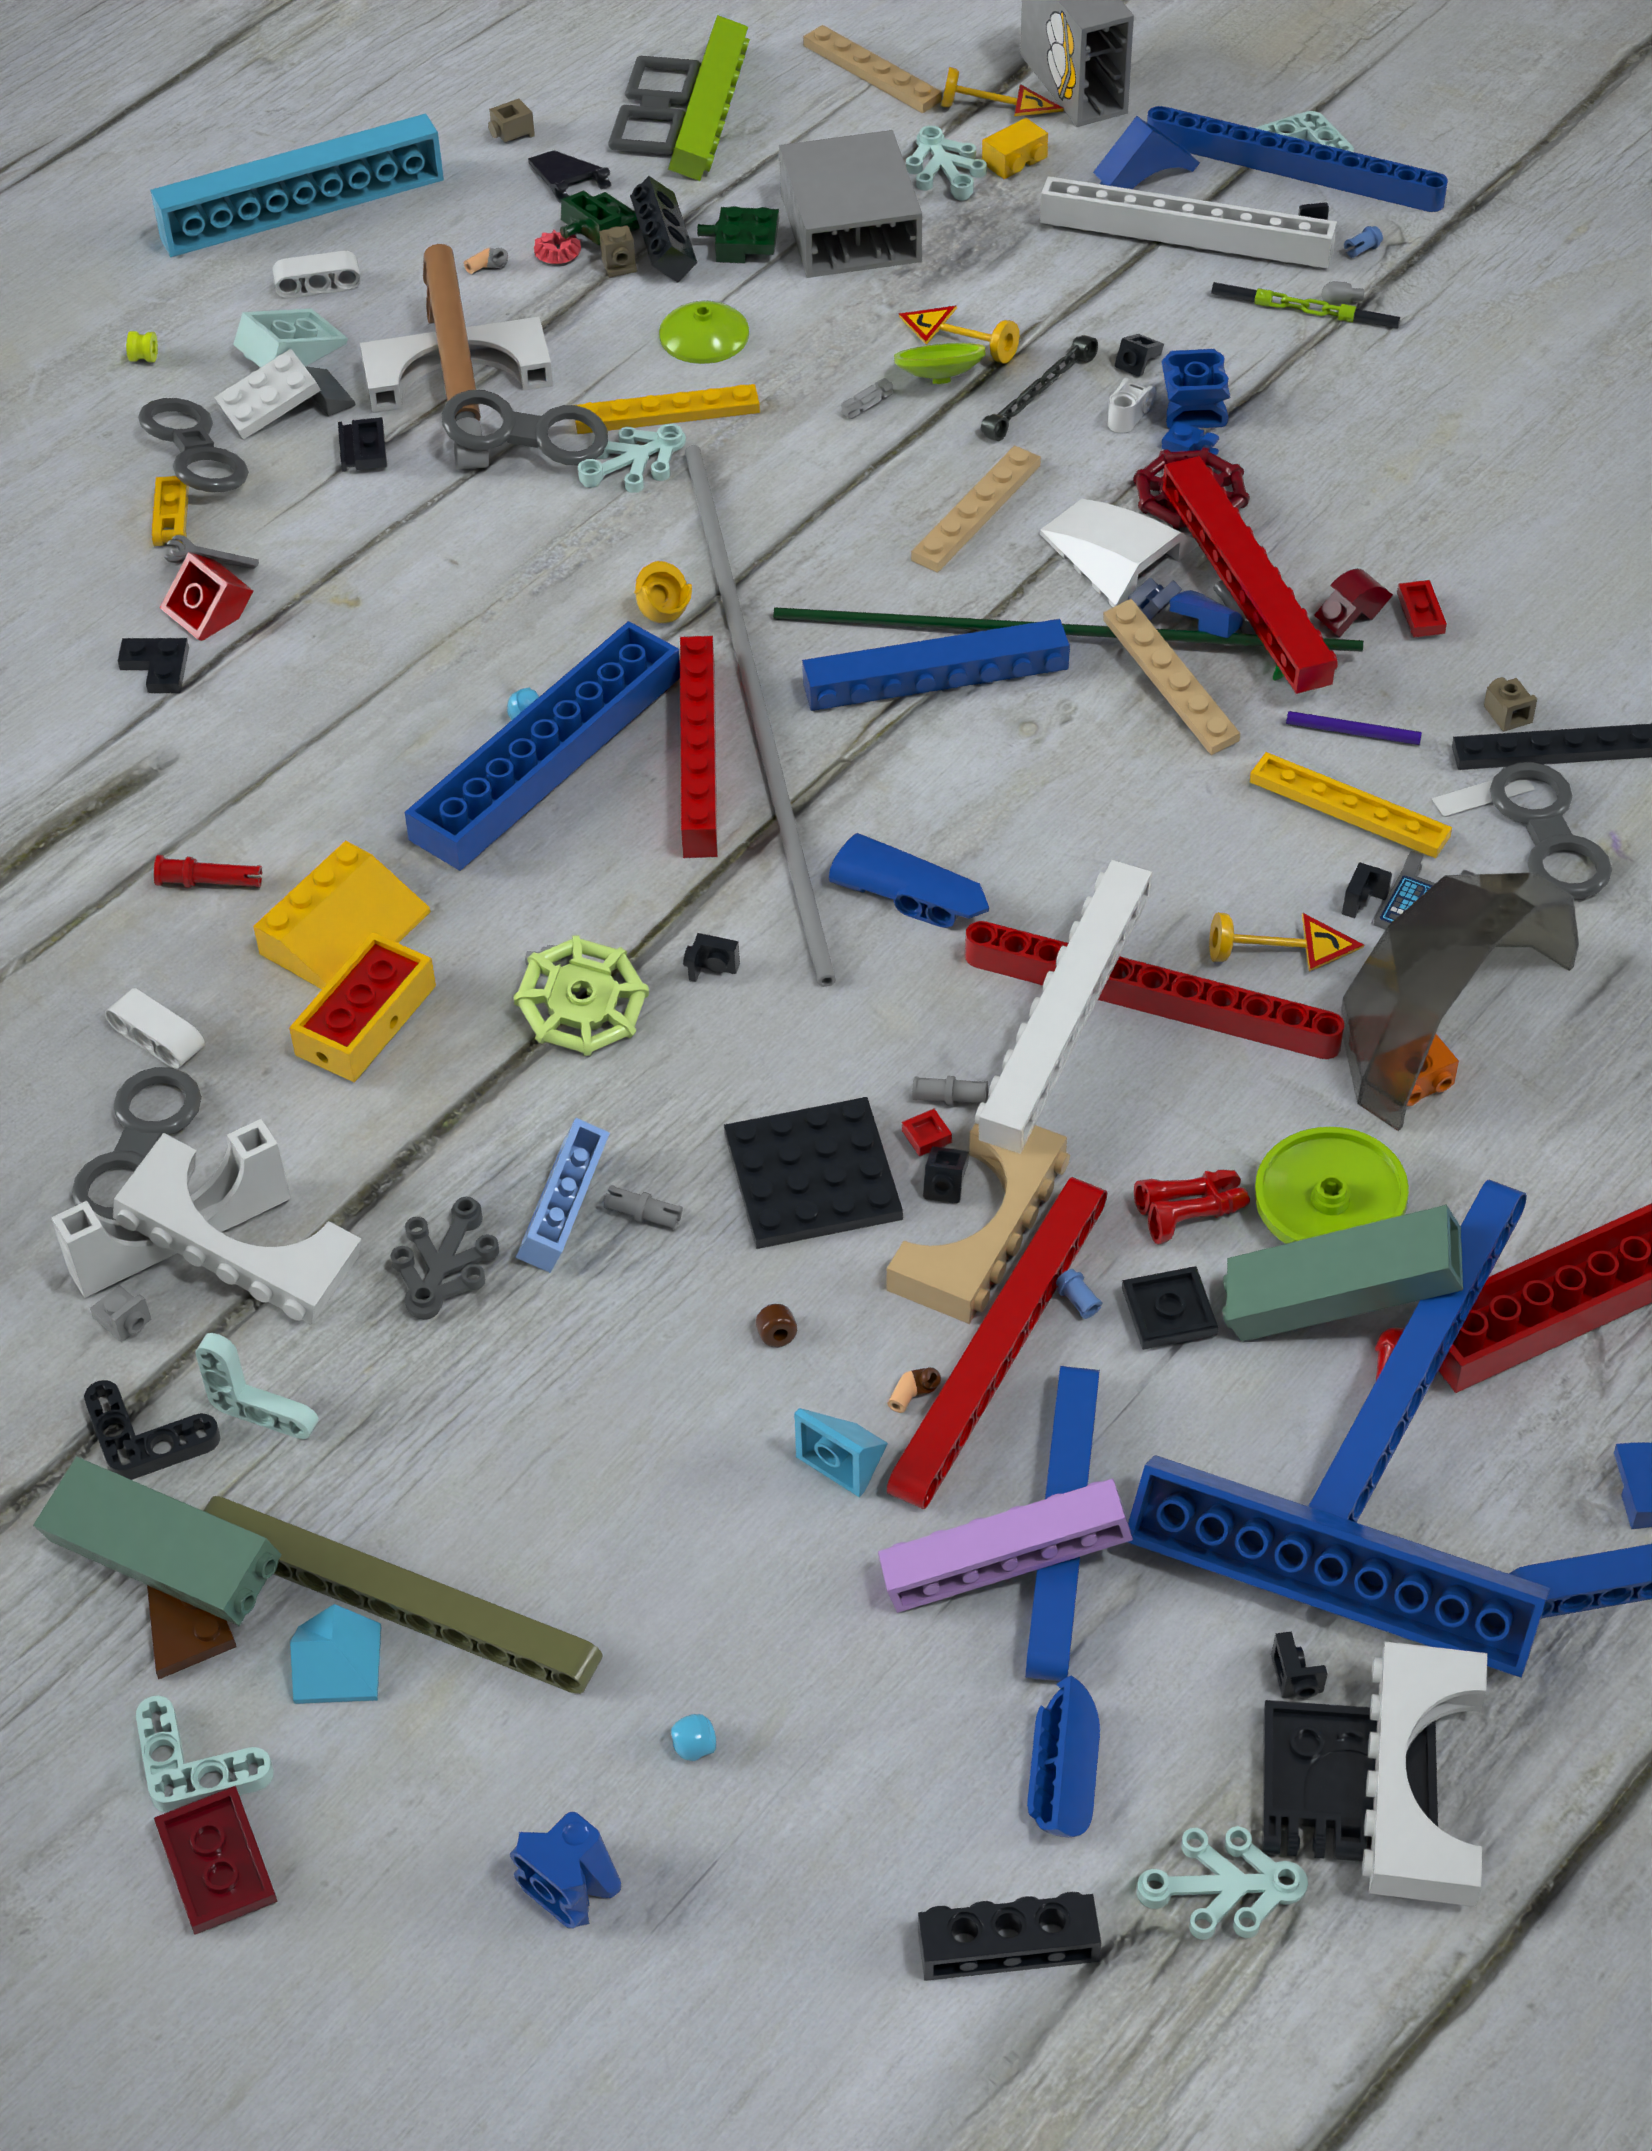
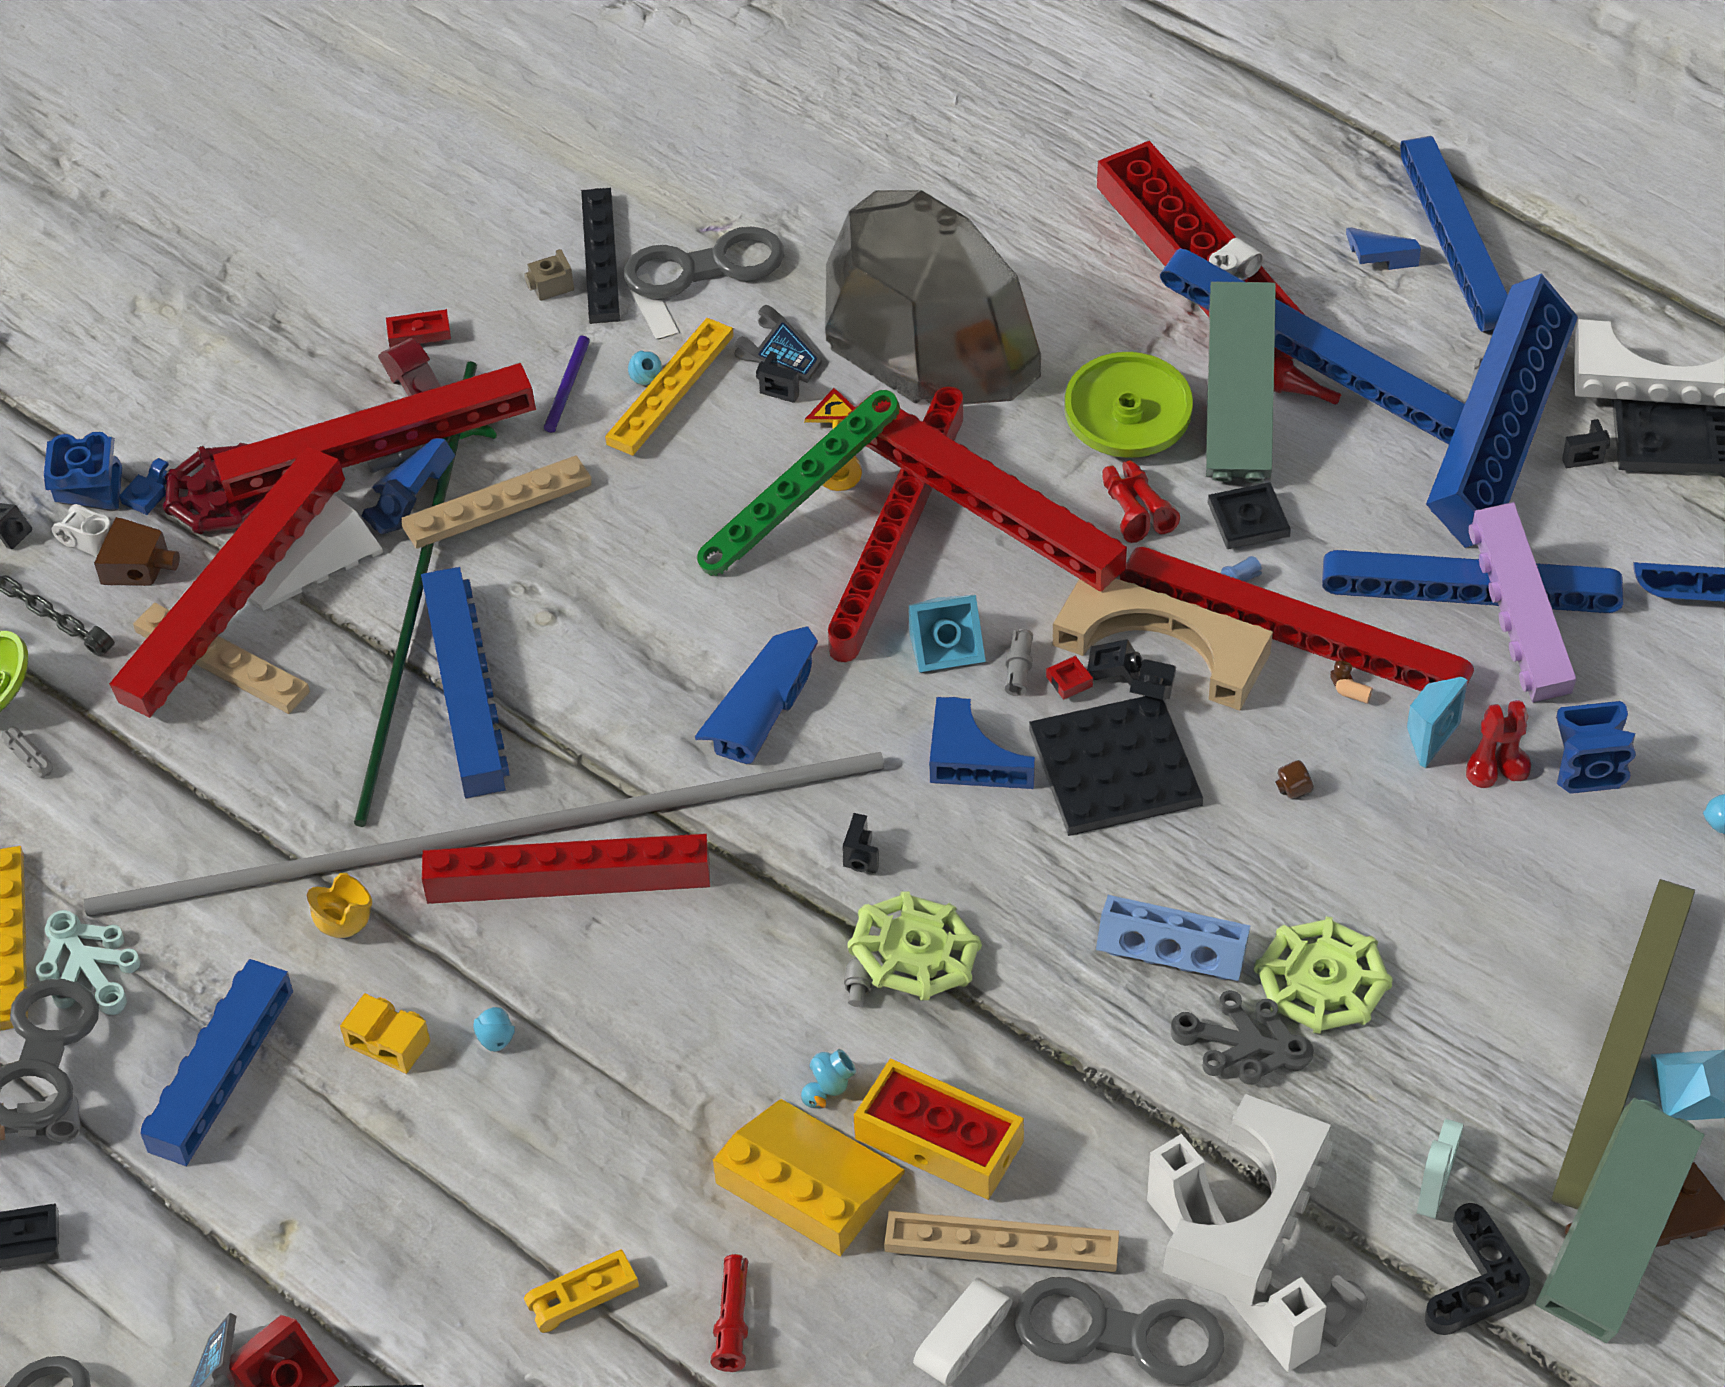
camera: 90 degrees left, 0 degrees up
(243, 1058) = (1002, 1241): none -> tan plate
(249, 777) = (581, 1290): none -> yellow plate
(442, 934) = (832, 1075): none -> medium azure animal
(515, 538) = (216, 1062): none -> blue brick
(521, 1349) = (1318, 991): none -> yellowish green plate
(530, 638) = (385, 1034): none -> yellow brick
(542, 745) = (565, 999): blue brick -> none
(643, 1207) = (1172, 882): light grey pin -> none
(783, 1594) = (1594, 747): none -> blue piece
(790, 1508) = (1510, 758): none -> red piece
(830, 1037) = (967, 757): none -> blue arch
(907, 1200) = (1154, 680): none -> black bracket
(984, 1020) = (946, 632): none -> medium azure slope
(1049, 486) = (227, 582): none -> red brick
(1064, 1007) = (944, 558): white brick -> none
(1099, 435) = (133, 555): none -> reddish brown torso
(1165, 1043) = (1000, 499): none -> red brick
(1188, 892) = (798, 482): none -> green plate
(1373, 779) = (644, 367): none -> medium azure piece
(1548, 1279) = (1238, 259): none -> white piece

